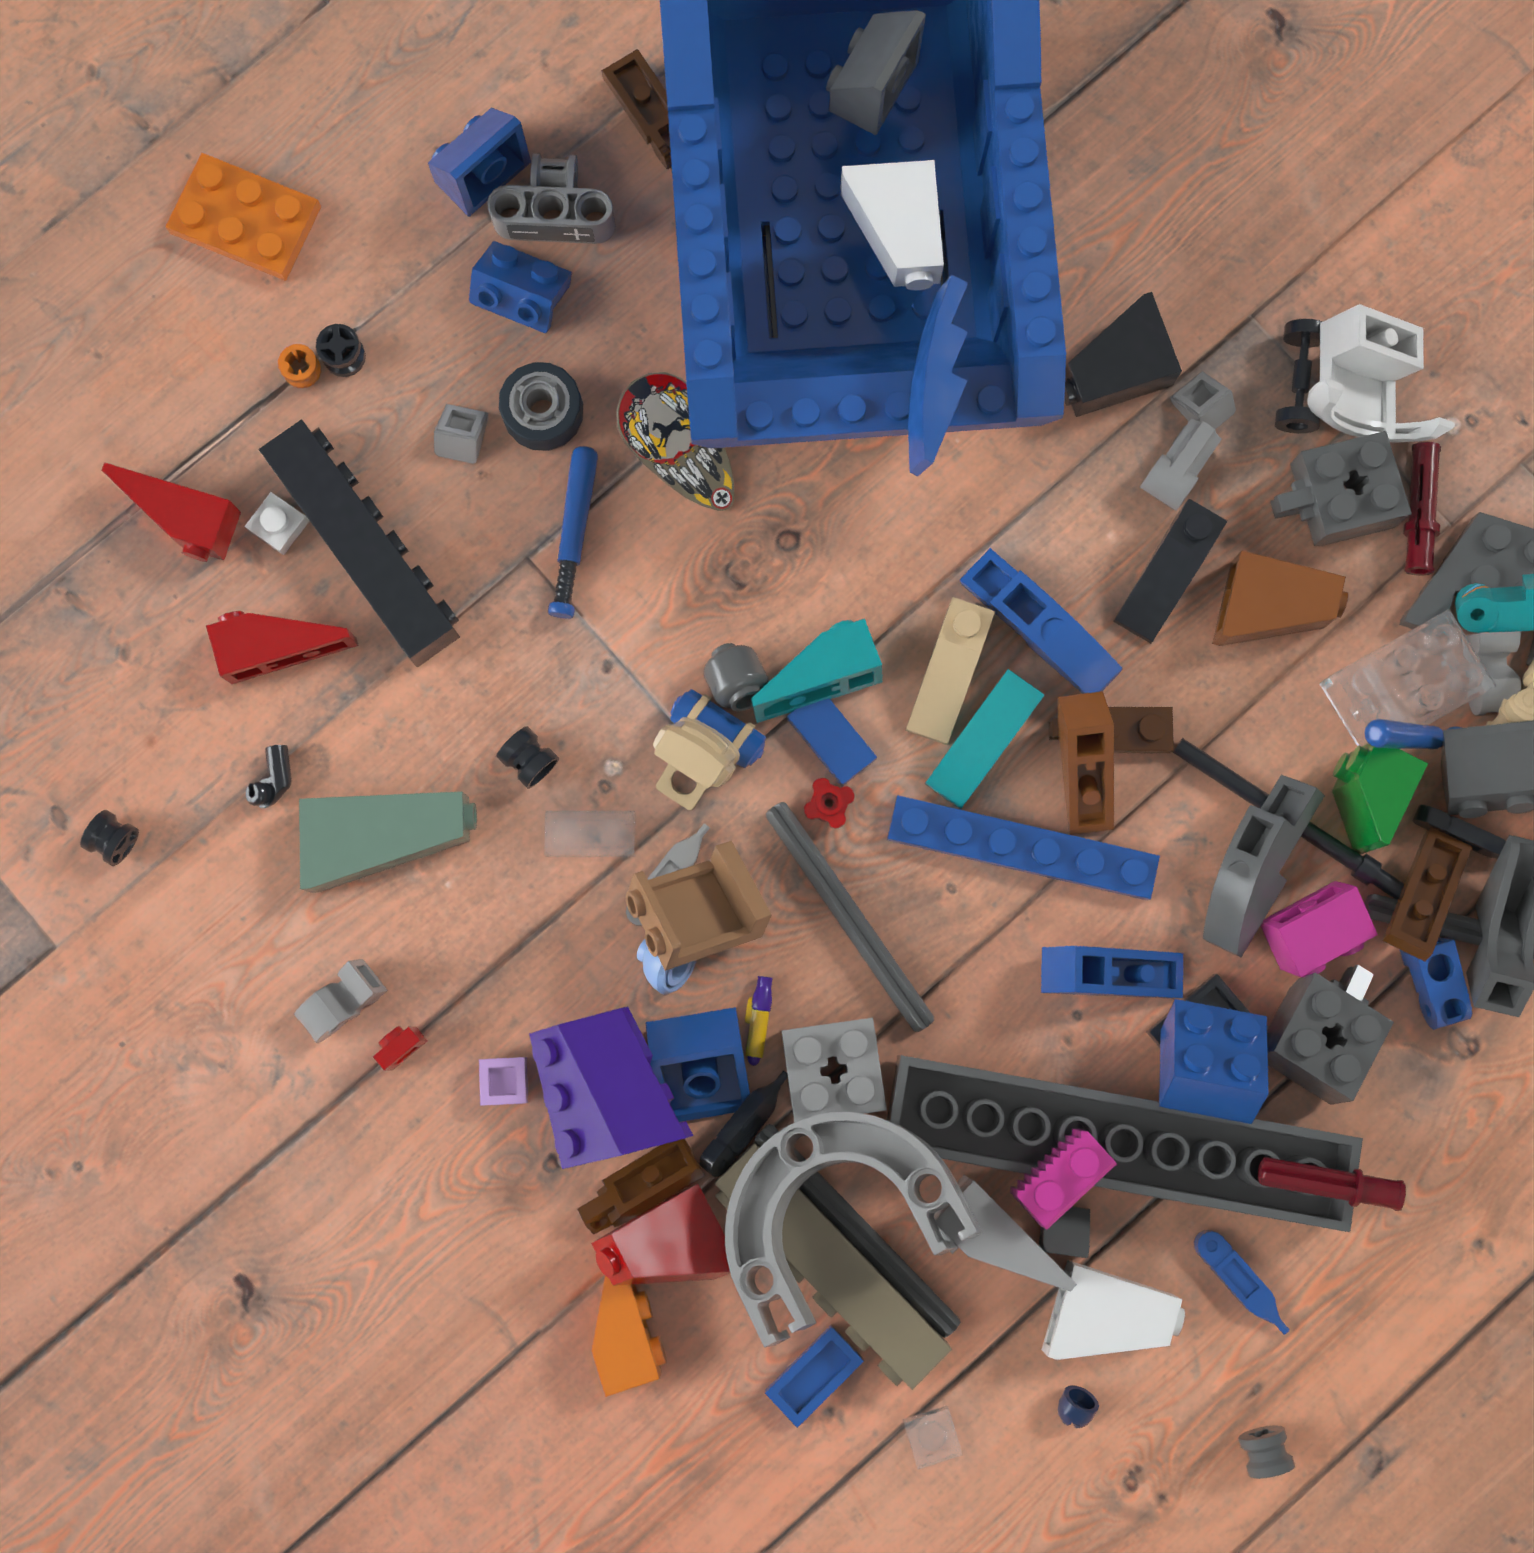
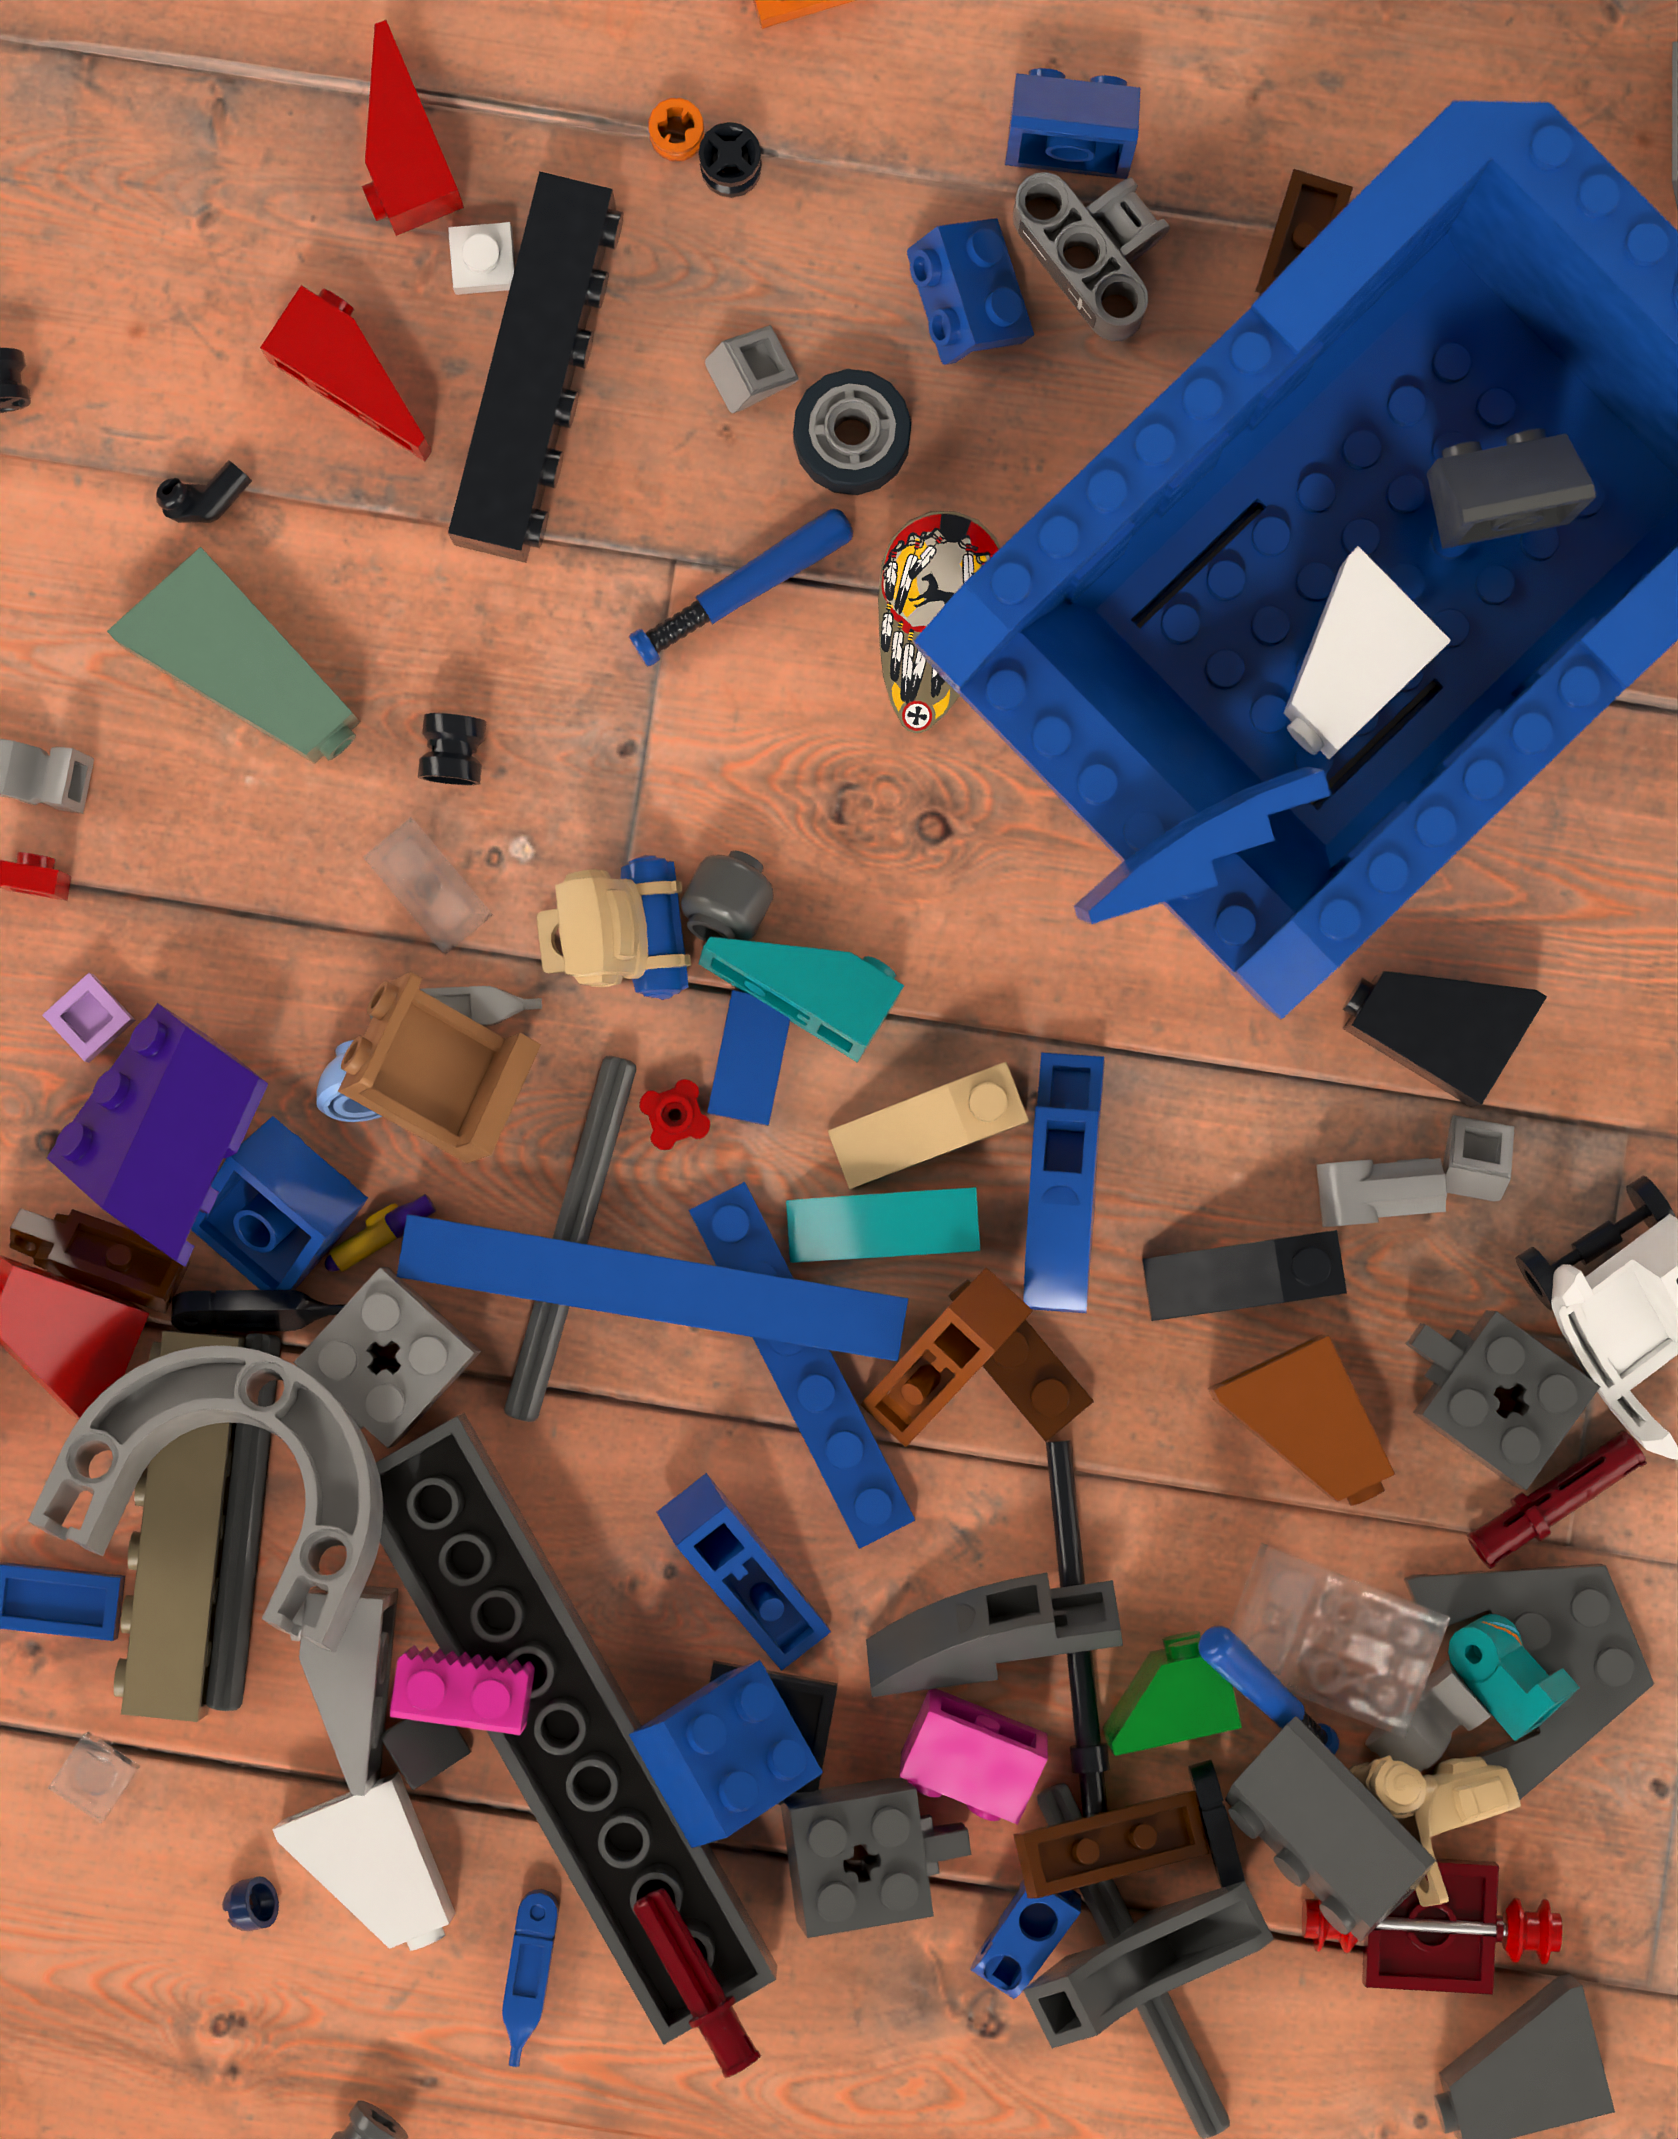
camera: 50 degrees right, 5 degrees up
(915, 891) = (652, 1287): none -> blue tile

